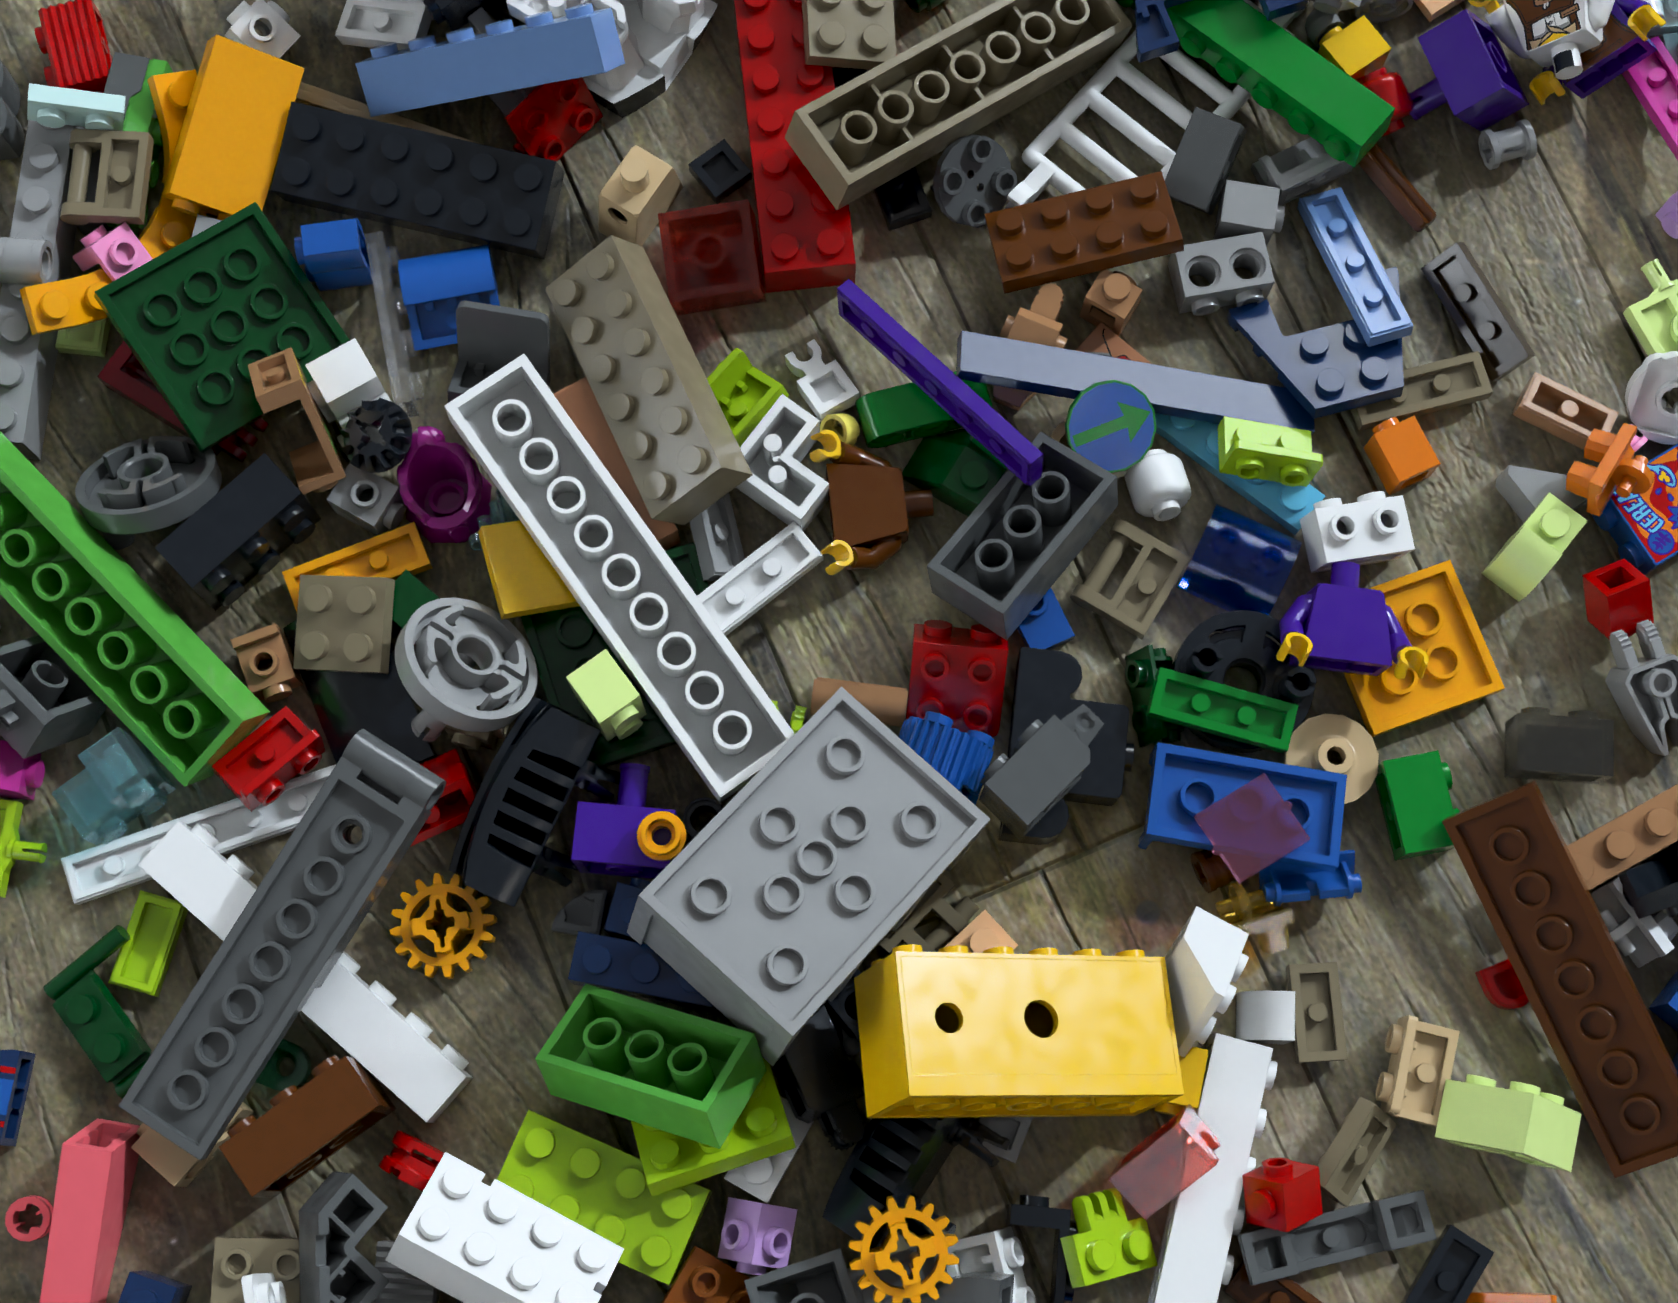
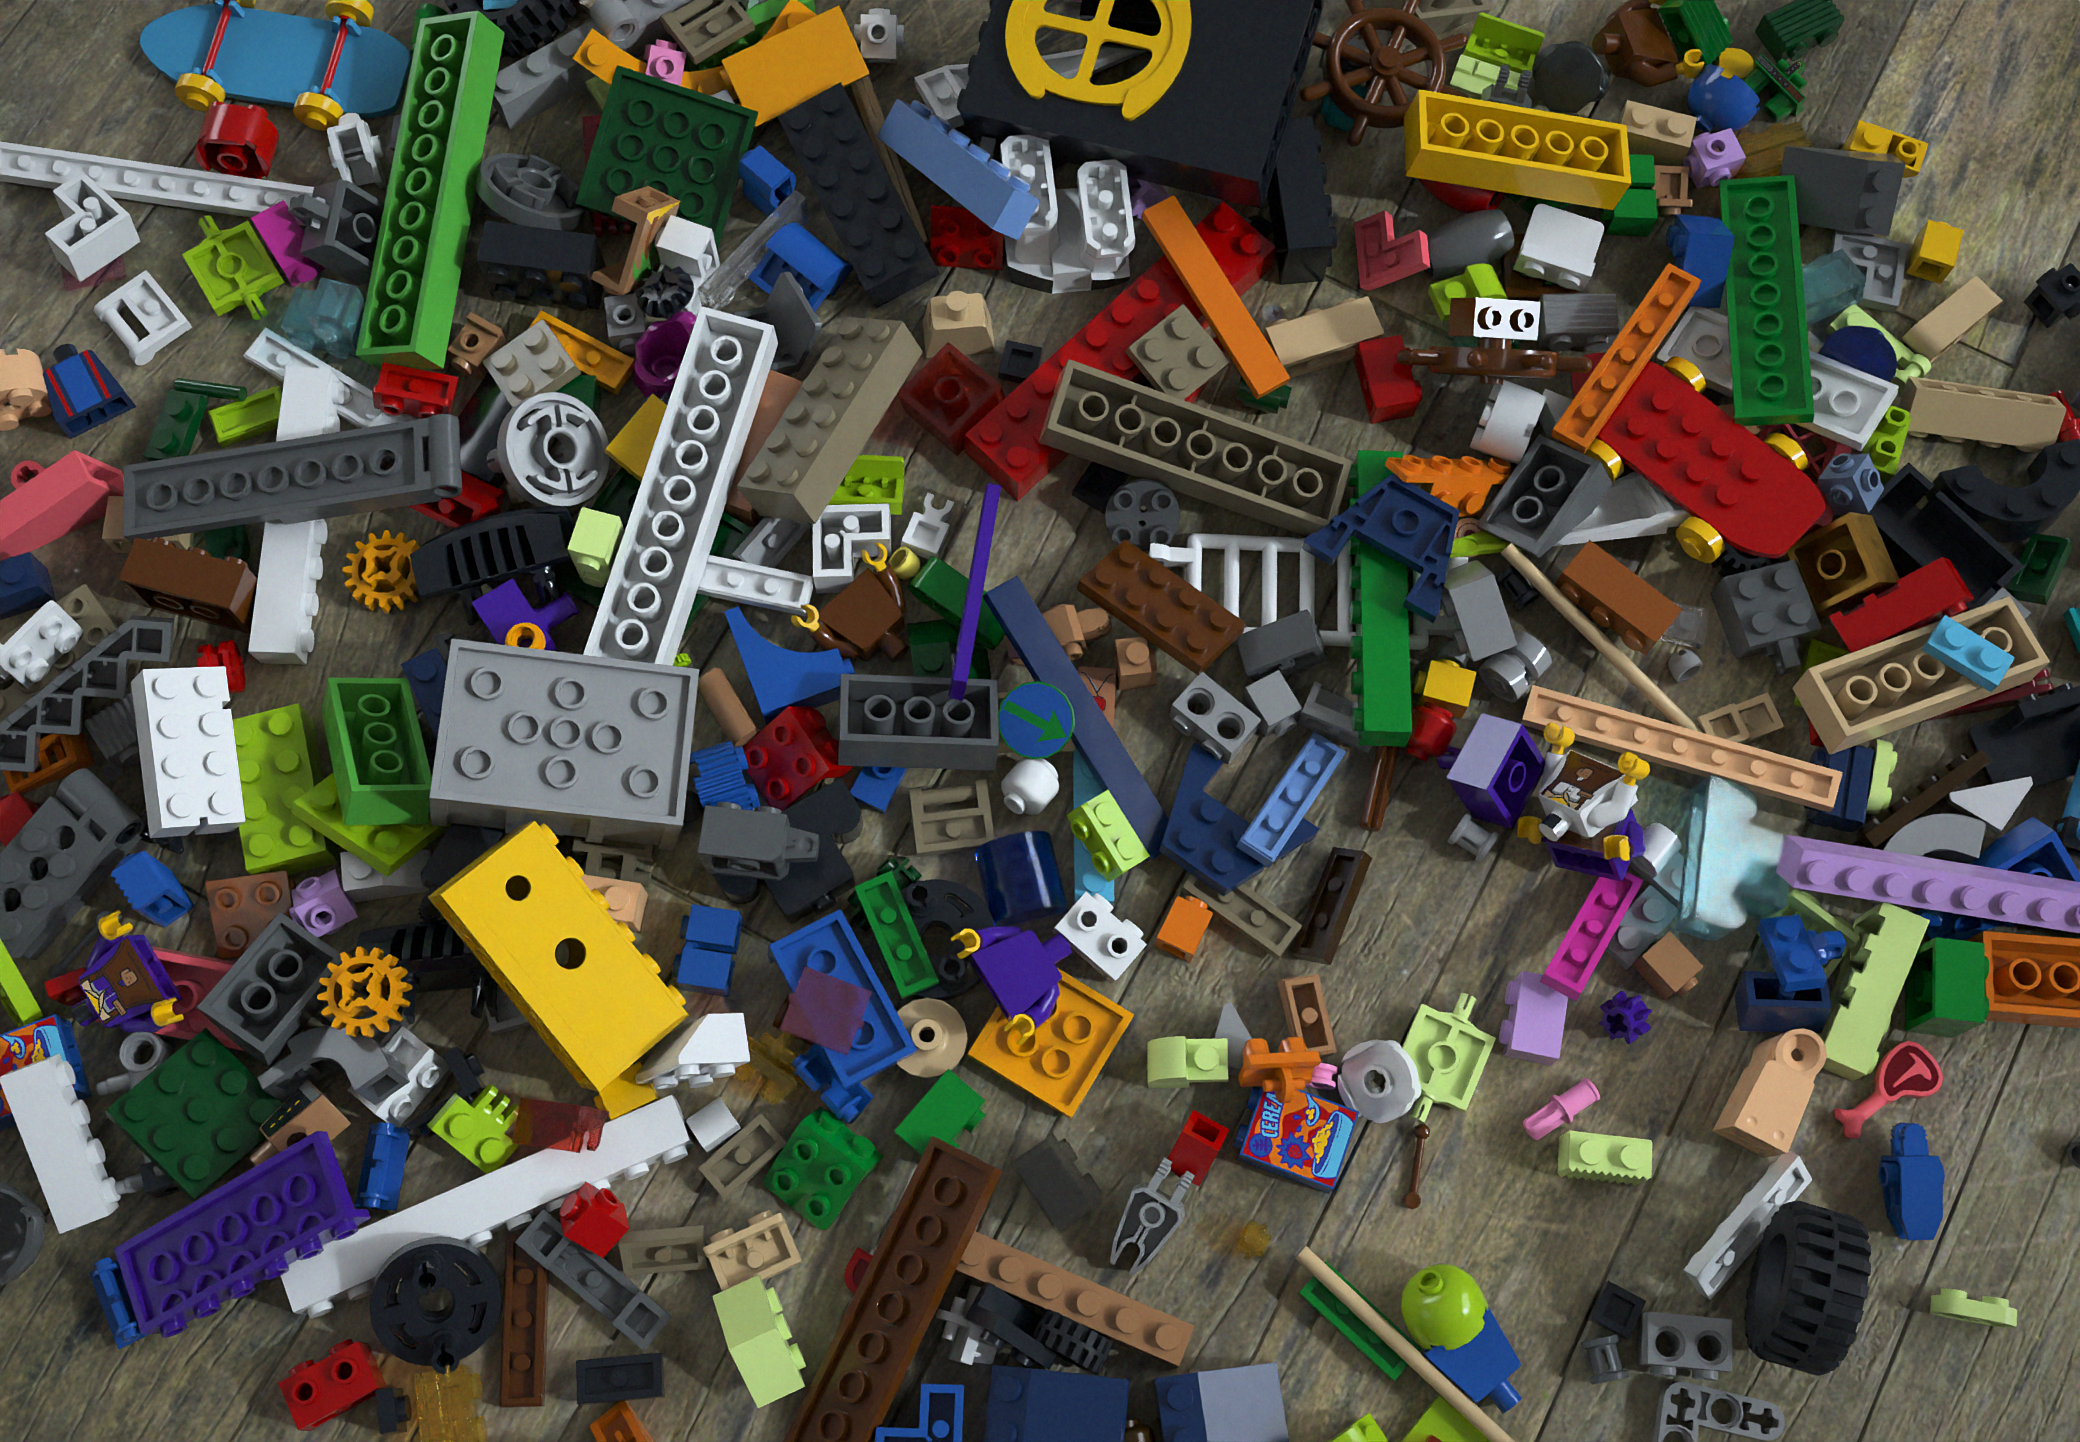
camera: 50 degrees right, 5 degrees down
(867, 630) = (785, 676): none -> blue arch
(1074, 879) = (712, 931): none -> blue piece
(1383, 947) = (821, 1167): none -> green bracket

